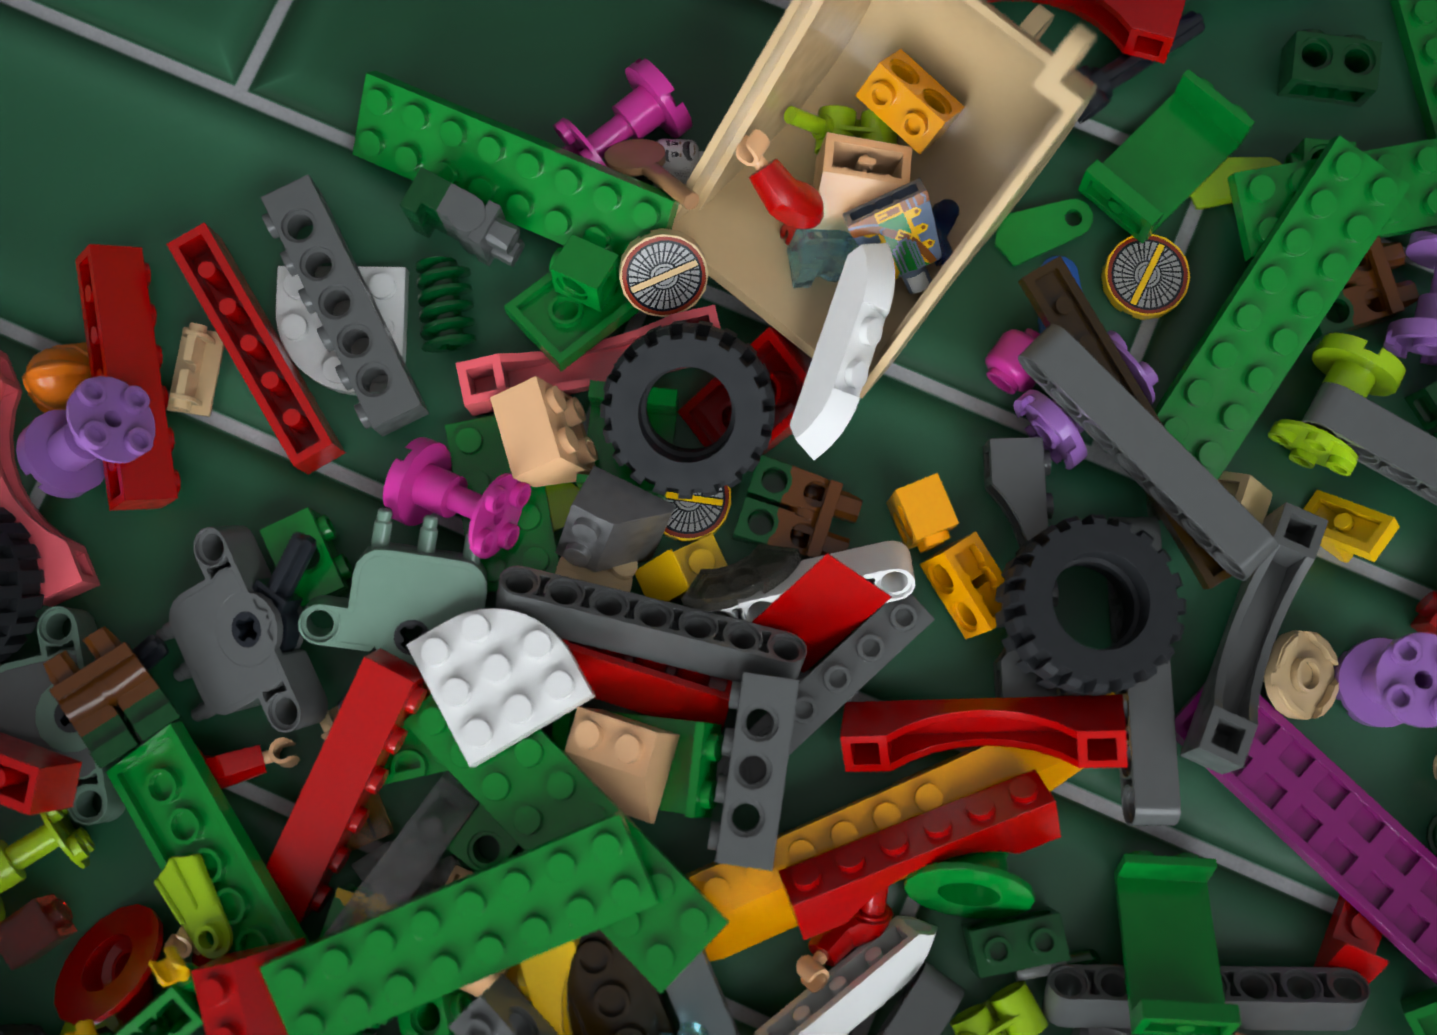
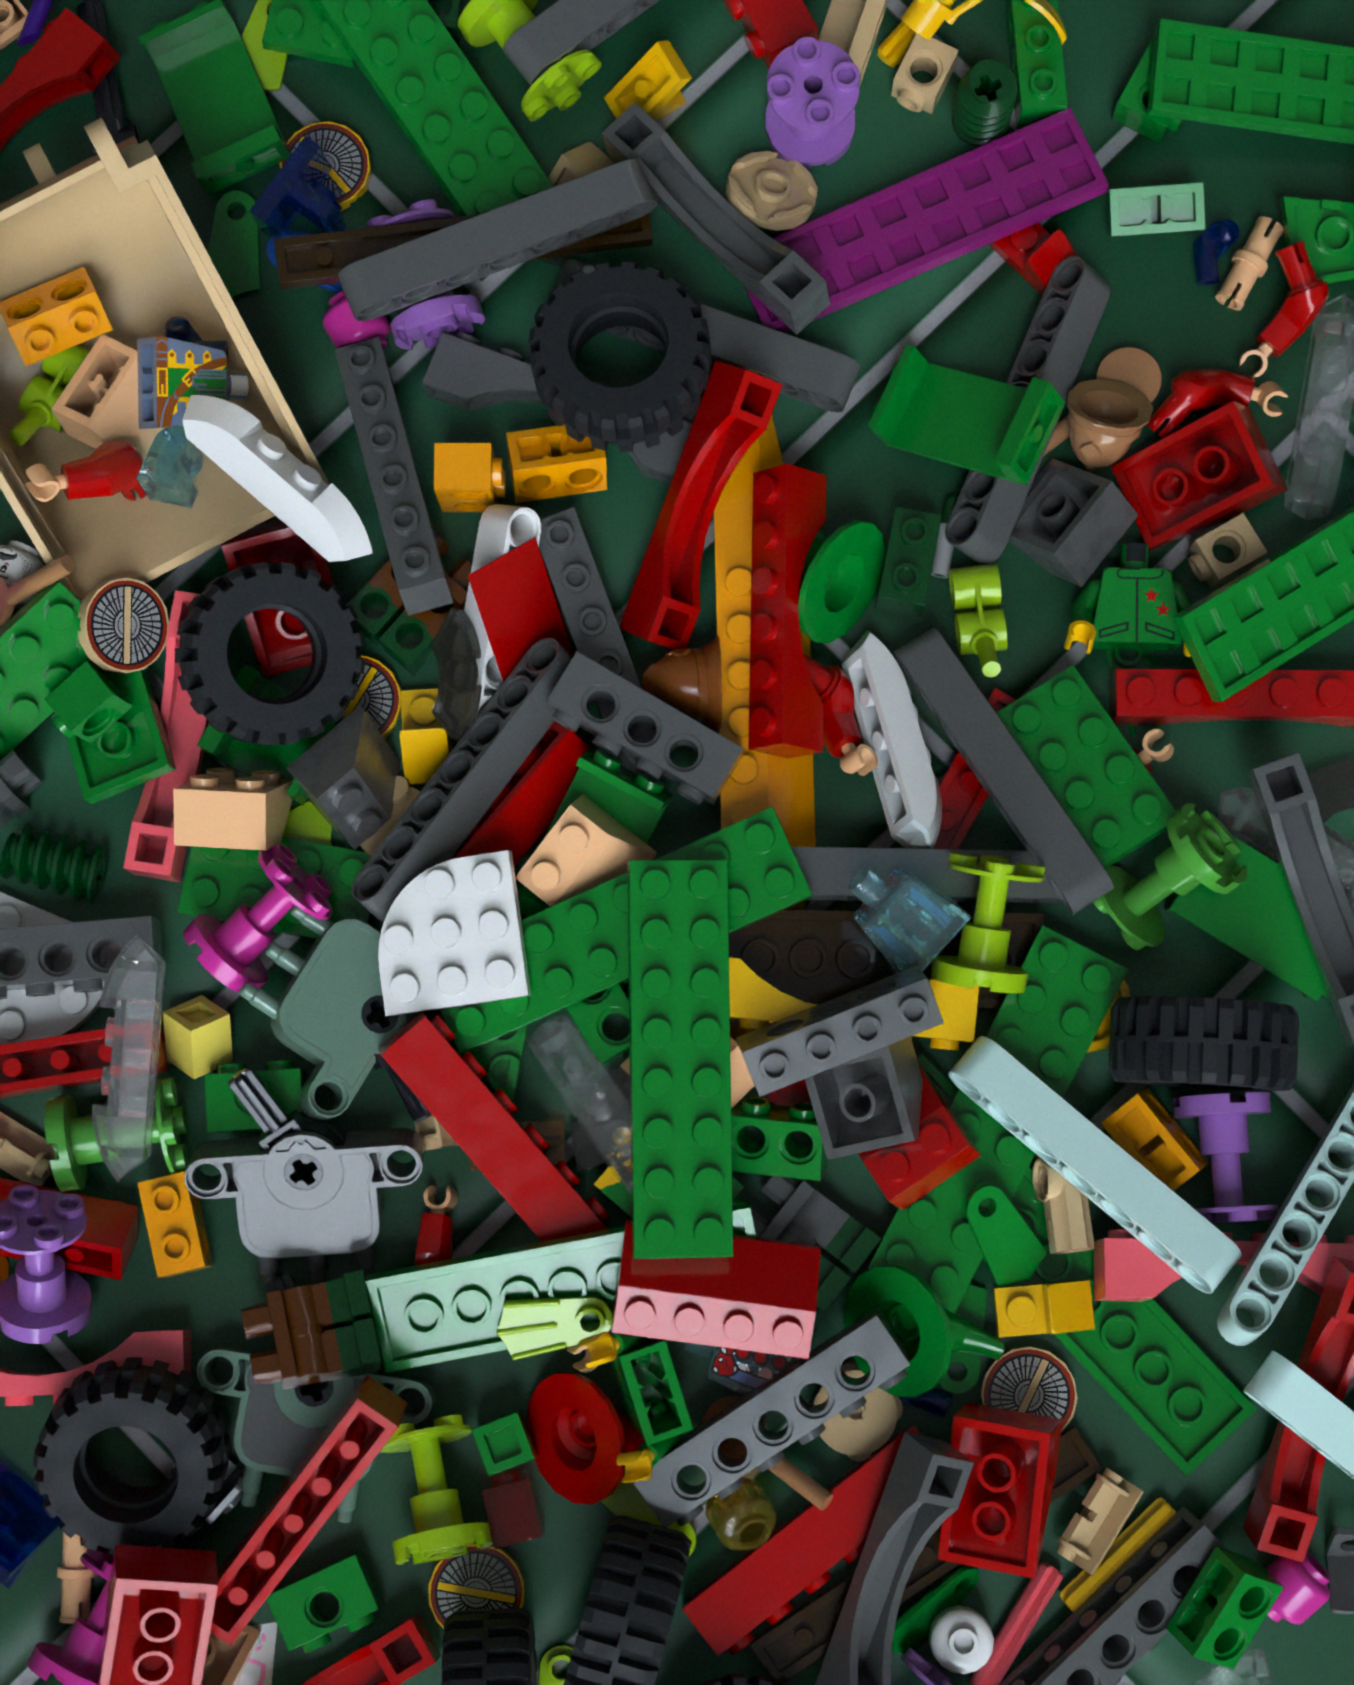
camera: 65 degrees left, 0 degrees up
(84, 901) = (504, 1442): none -> green brick
(167, 538) = (174, 1226): none -> light orange brick
(214, 428) = (76, 1143): none -> bright green piece
(309, 432) = (136, 993): none -> clear brick
(344, 487) = (197, 1036): none -> light yellow panel
(817, 790) = (689, 682): none -> dark orange piece
(893, 449) = (393, 476): none -> dark grey brick
(1113, 259) = (299, 191): none -> clear blue bracket

